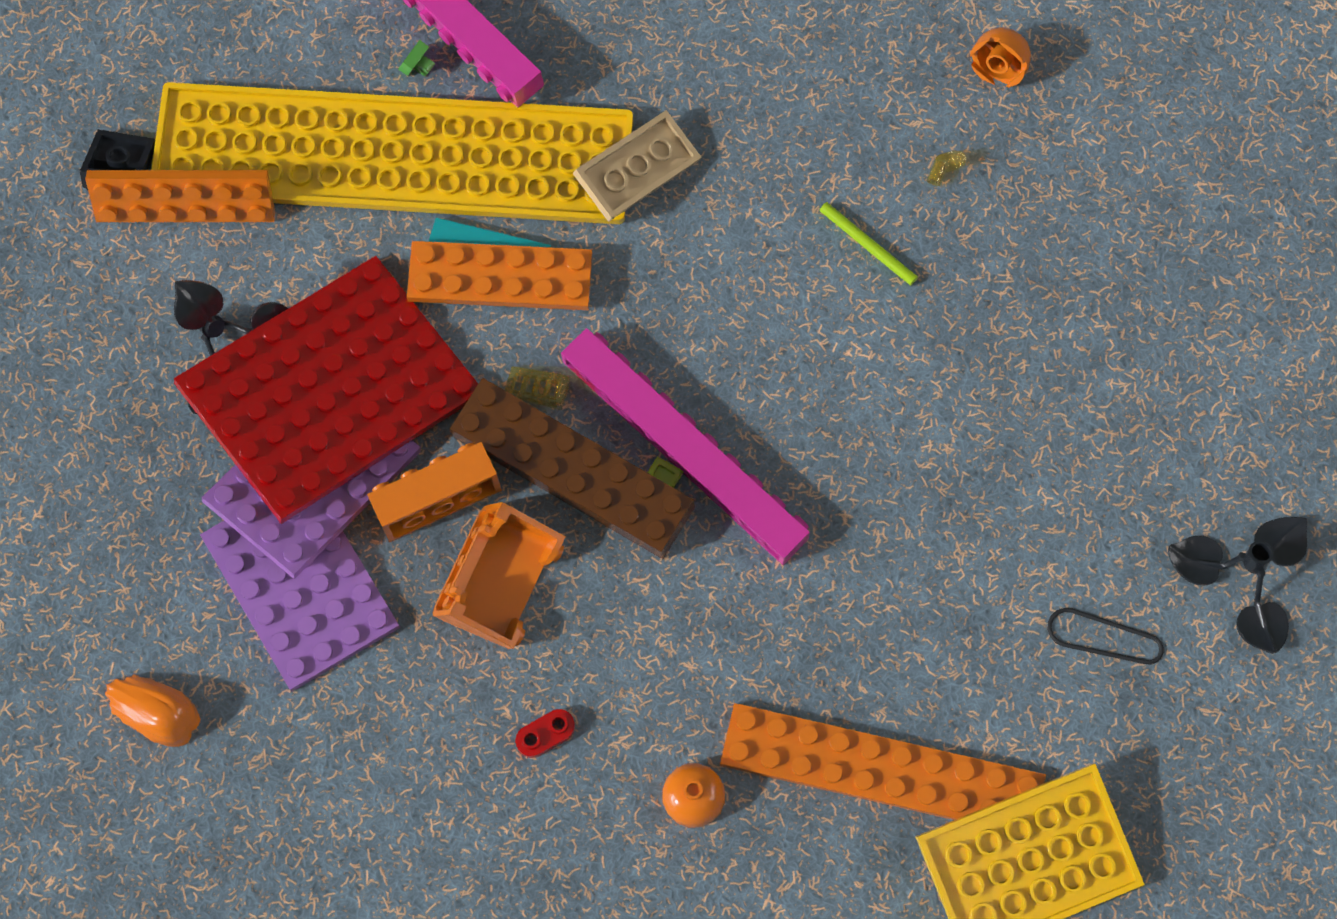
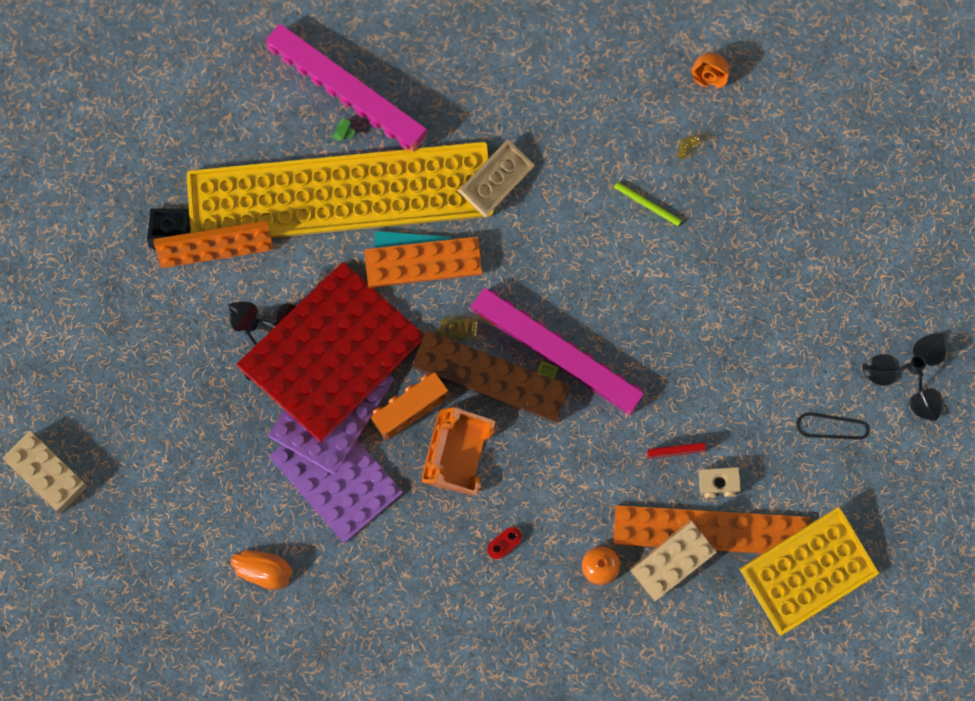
camera: 10 degrees left, 5 degrees up
(809, 805) = (672, 560): none -> tan brick
(845, 632) = (676, 450): none -> red tile
(924, 685) = (728, 475): none -> tan brick

